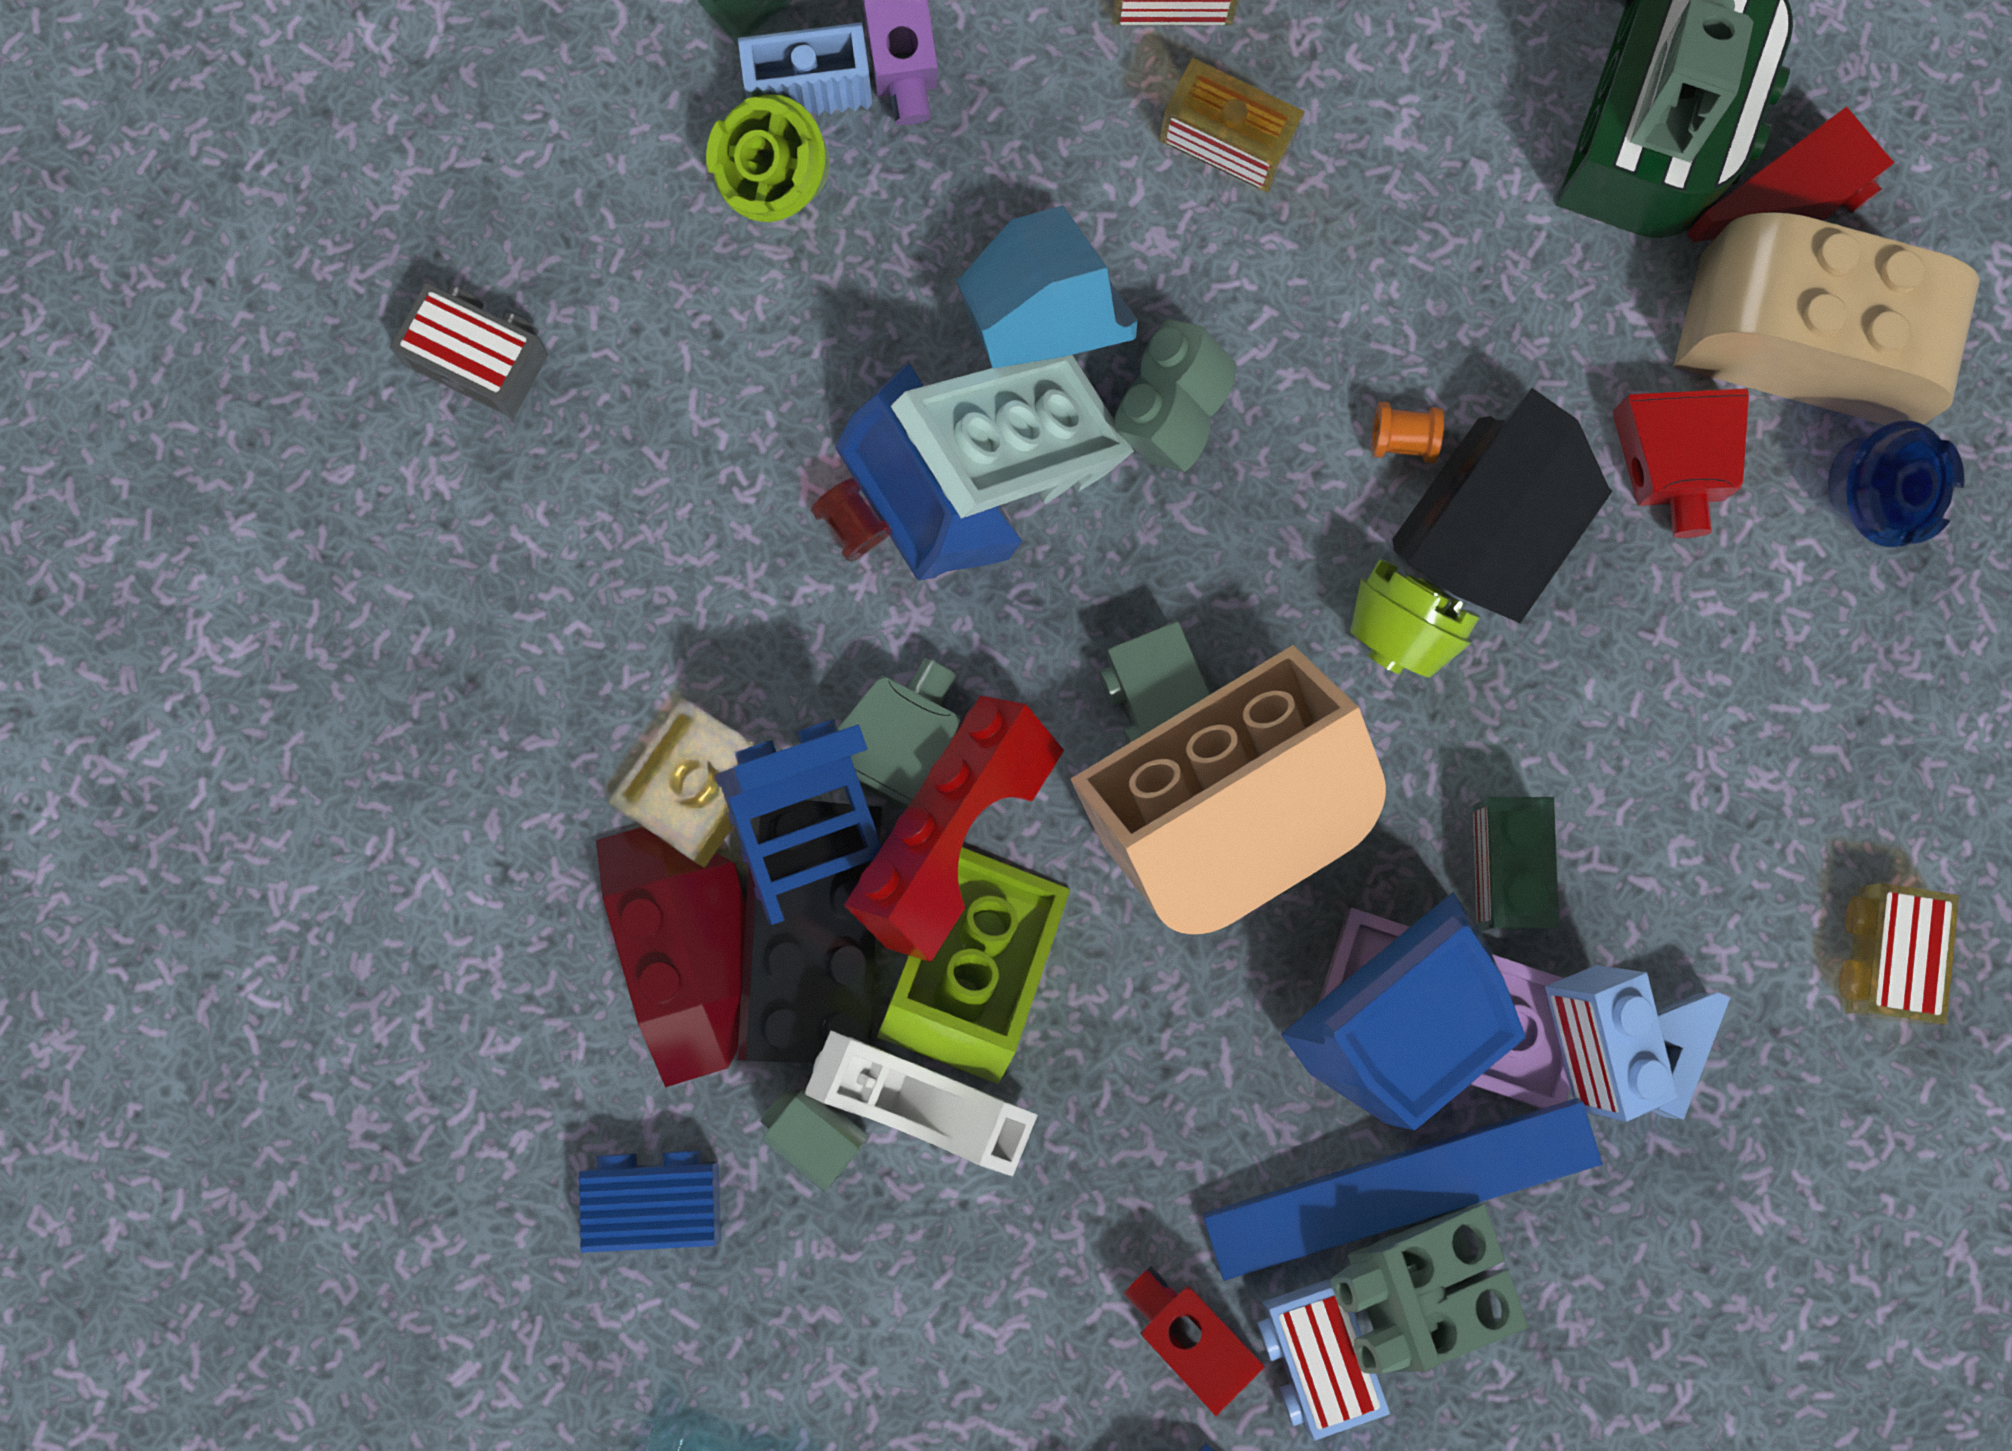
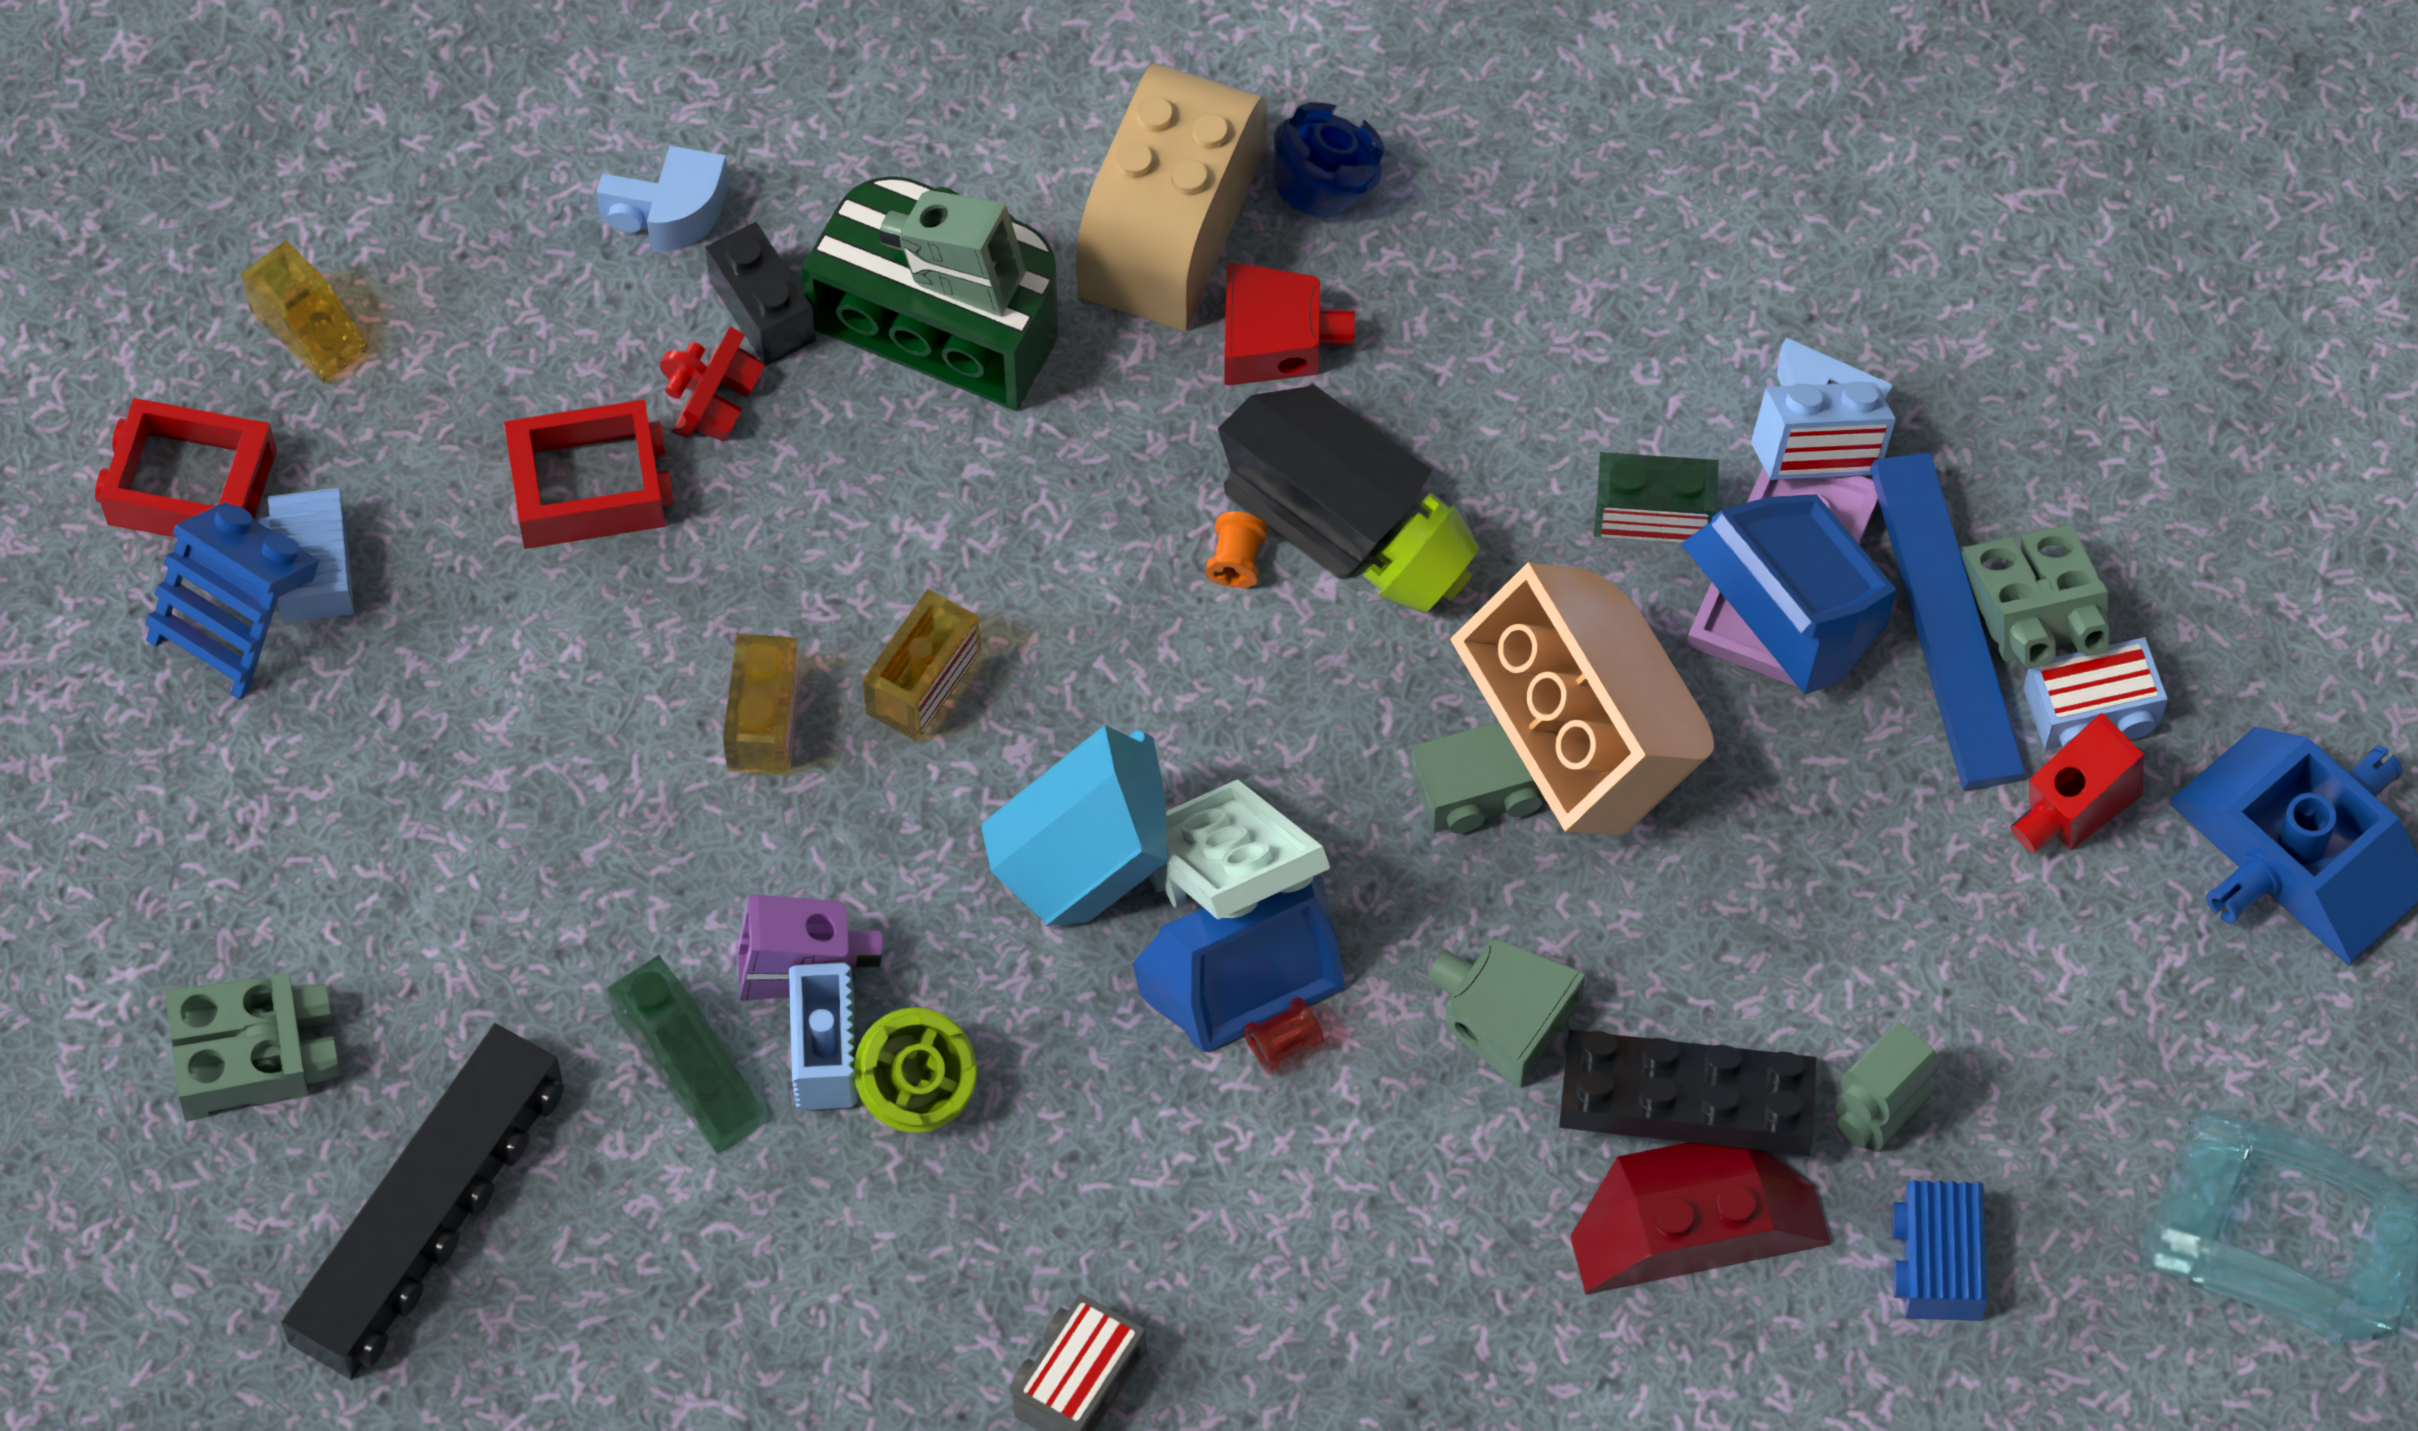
camera: 80 degrees left, 20 degrees down
(675, 785) = (1536, 1187): clear yellow tile -> none
(774, 780) = (1550, 1076): blue plate -> none
(912, 885) = (1642, 969): red arch -> none
(920, 1103) = (1858, 996): white arch -> none
(983, 980) = (1727, 955): lime slope -> none
(1178, 391) = (1200, 744): sand green brick -> none
(1812, 179) = (1021, 175): red slope -> none
(1900, 954) = (1751, 209): brick -> none

